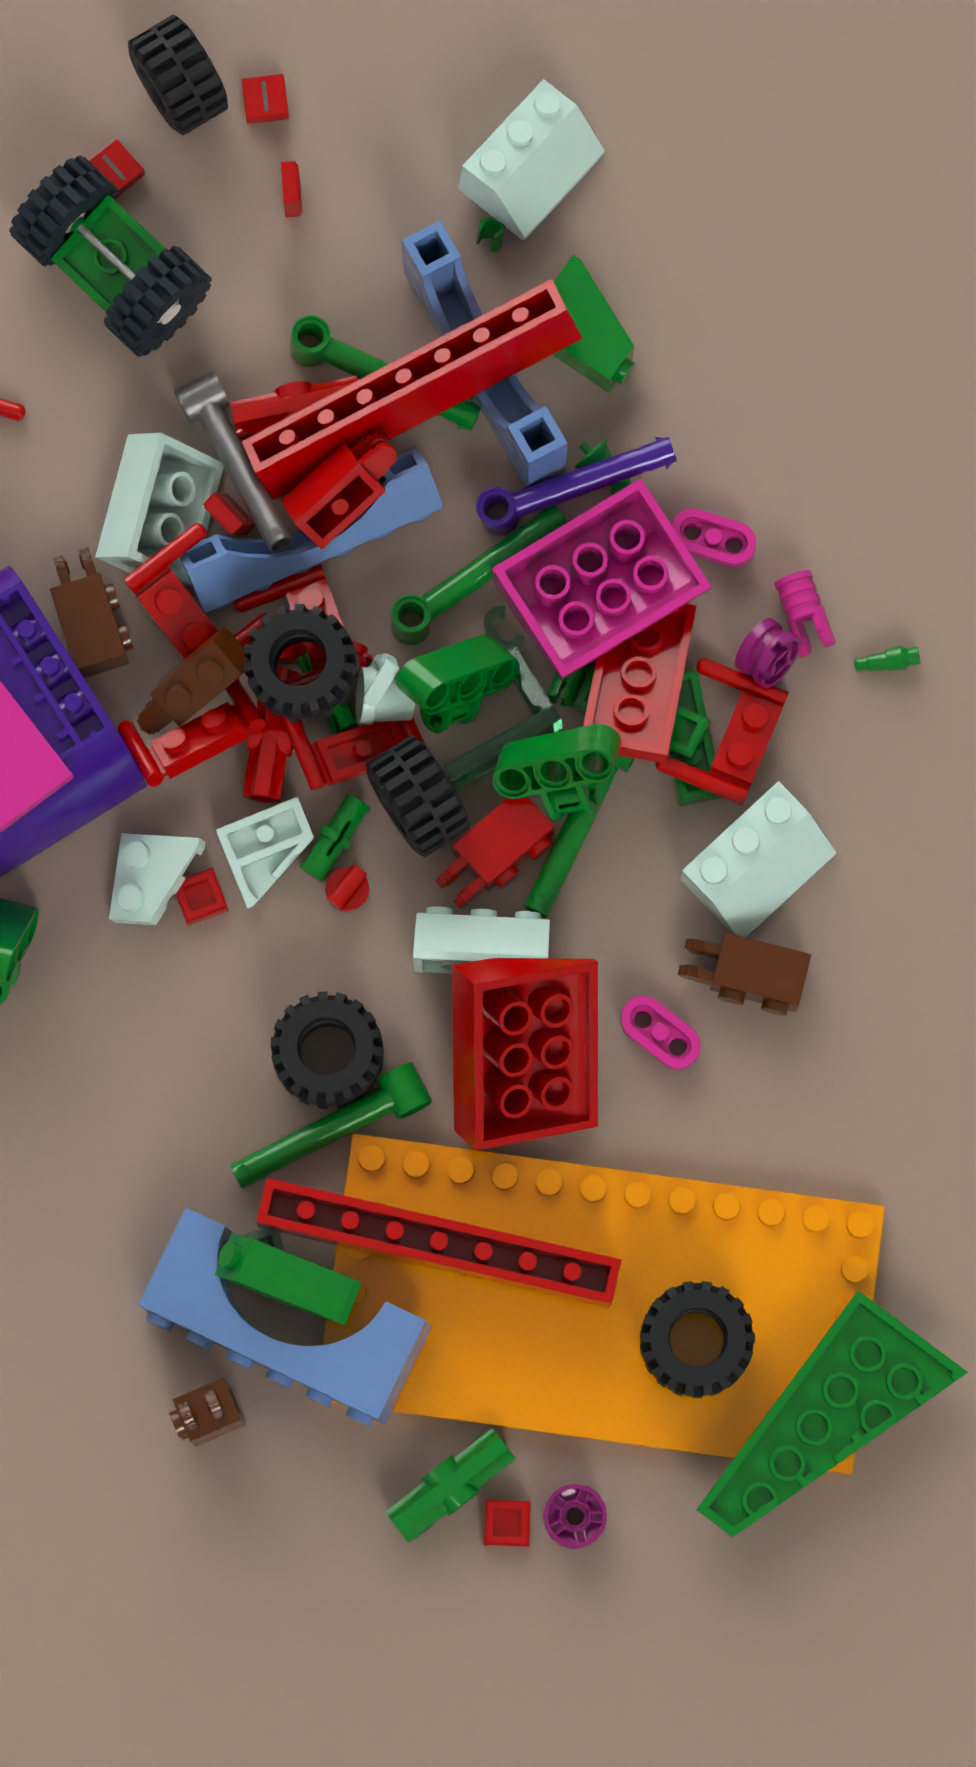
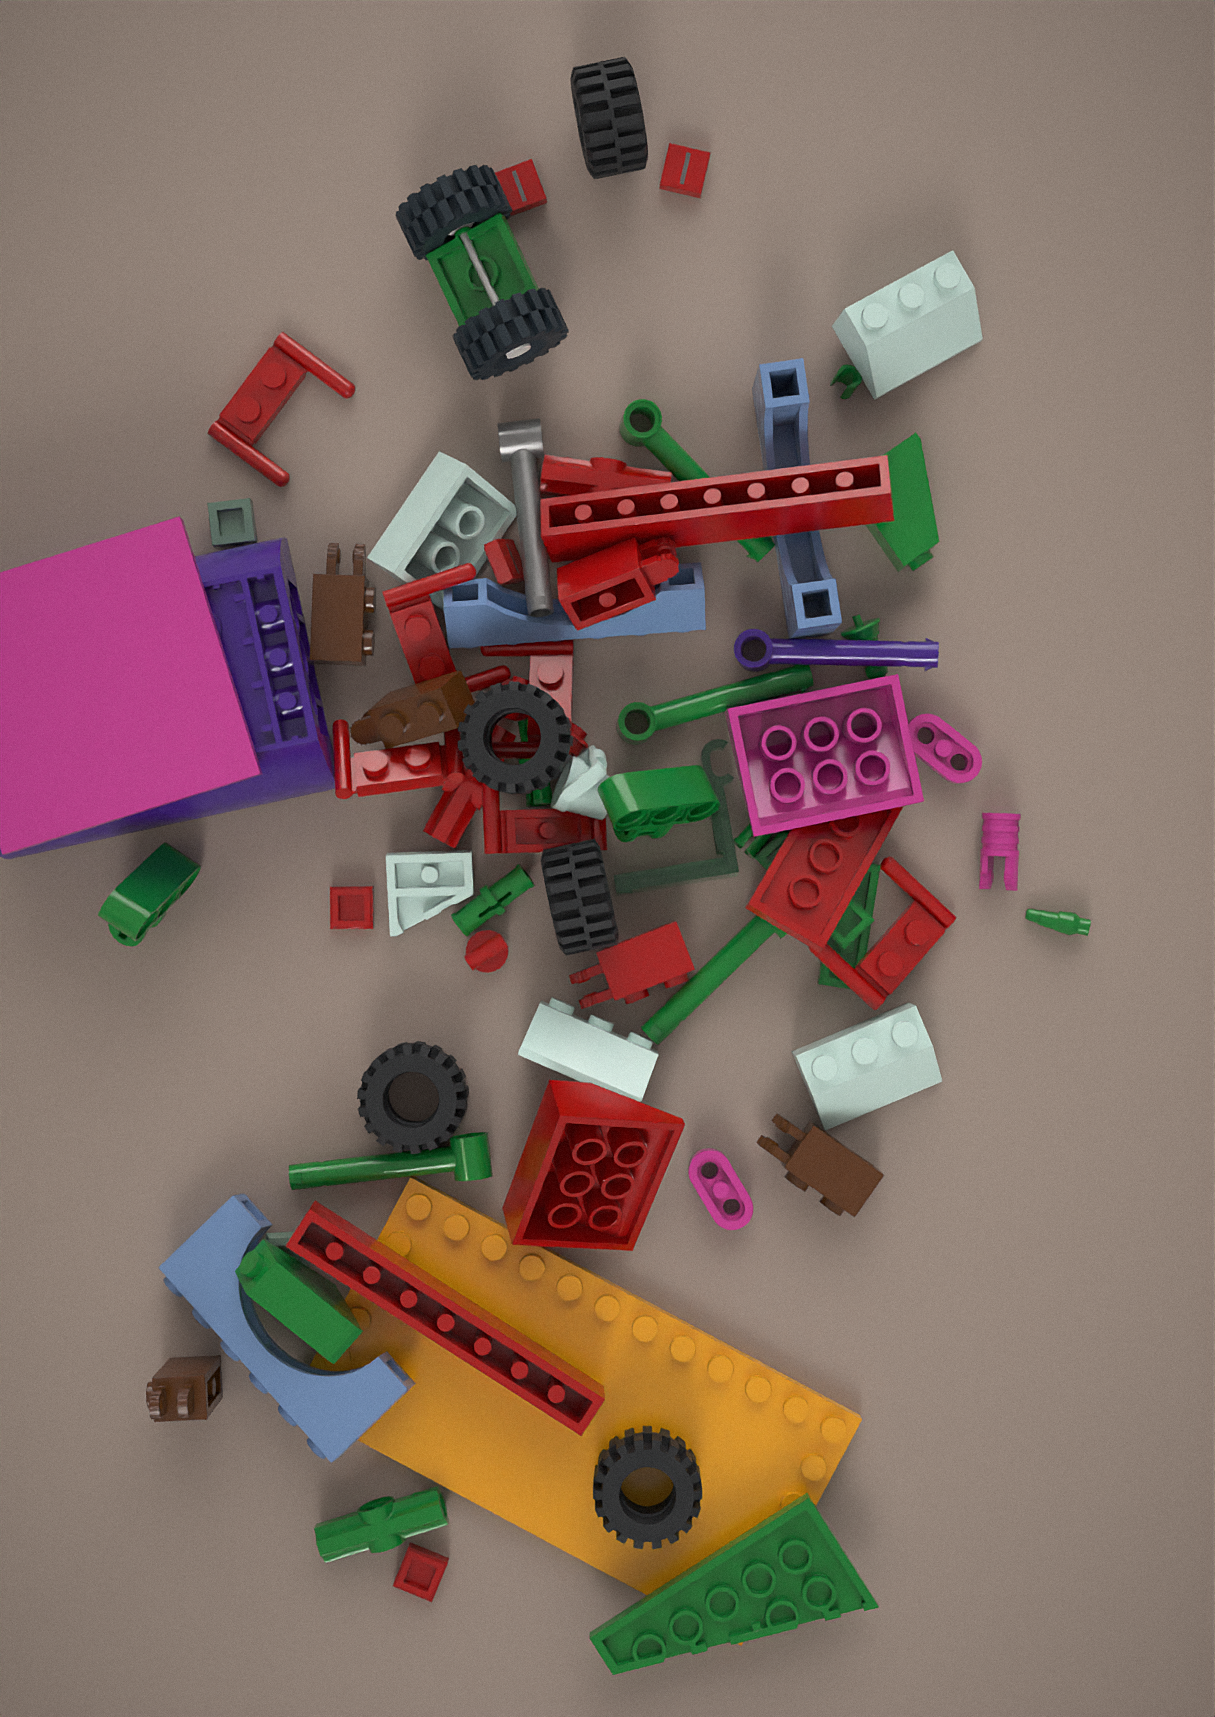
camera: 20 degrees right, 10 degrees up
(149, 874) = (311, 873): light aqua wing -> none
(291, 189) = (676, 268): red tile -> none
(565, 786) = (719, 921): green piece -> none
(591, 1506) = (491, 1606): magenta wheel -> none
(767, 653) = (951, 878): magenta wheel -> none

